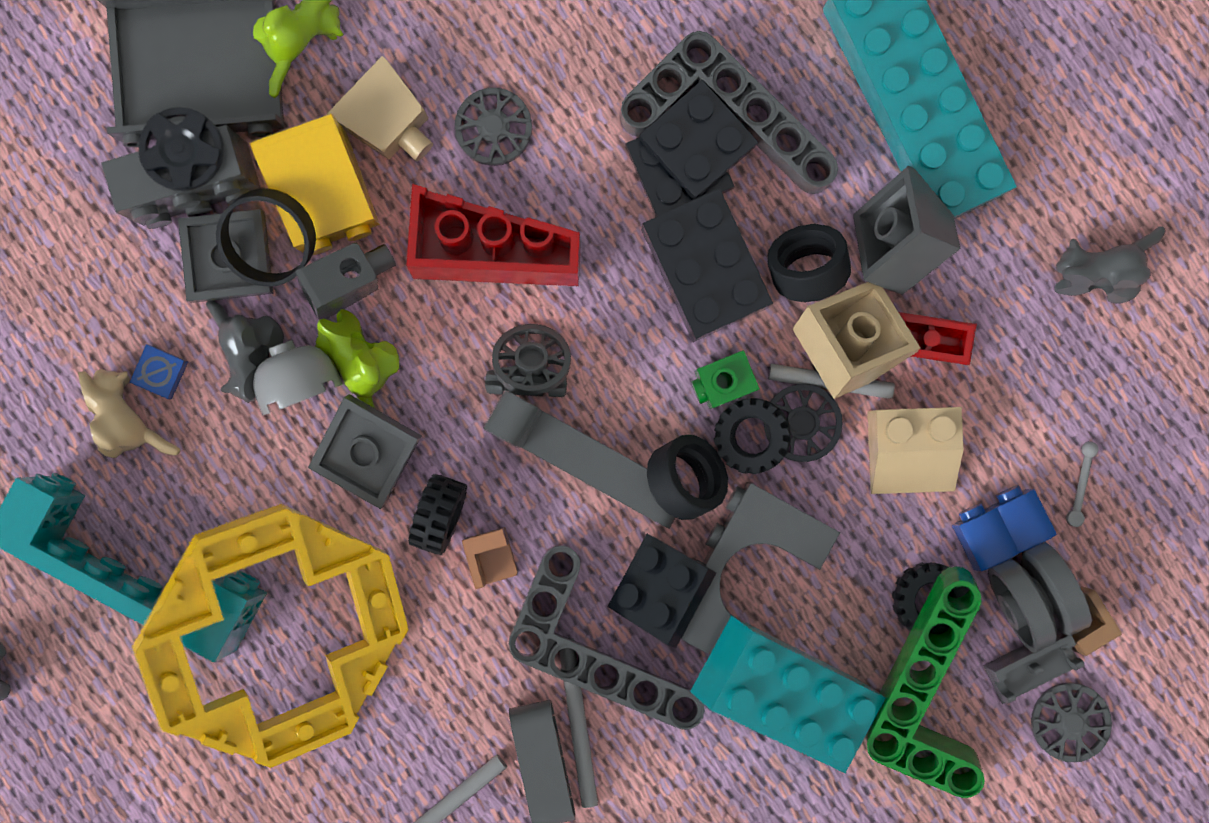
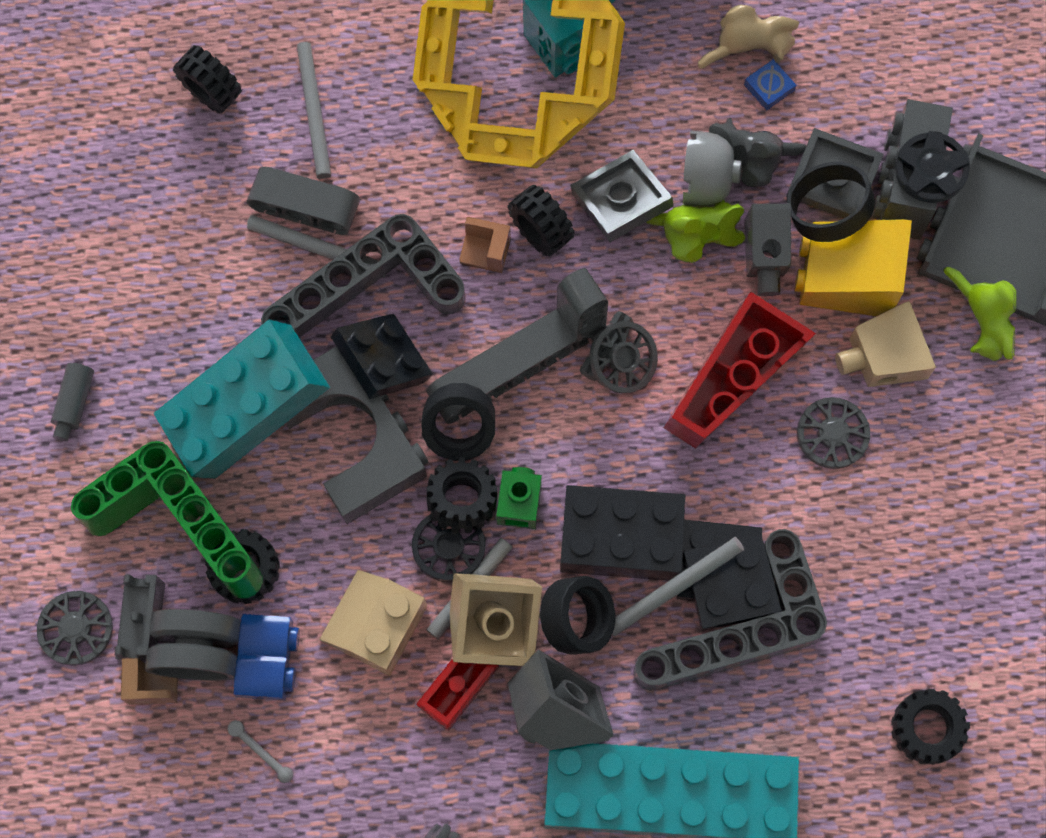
camera: 120 degrees right, 15 degrees down
(730, 184) = (677, 584): none -> light grey bar

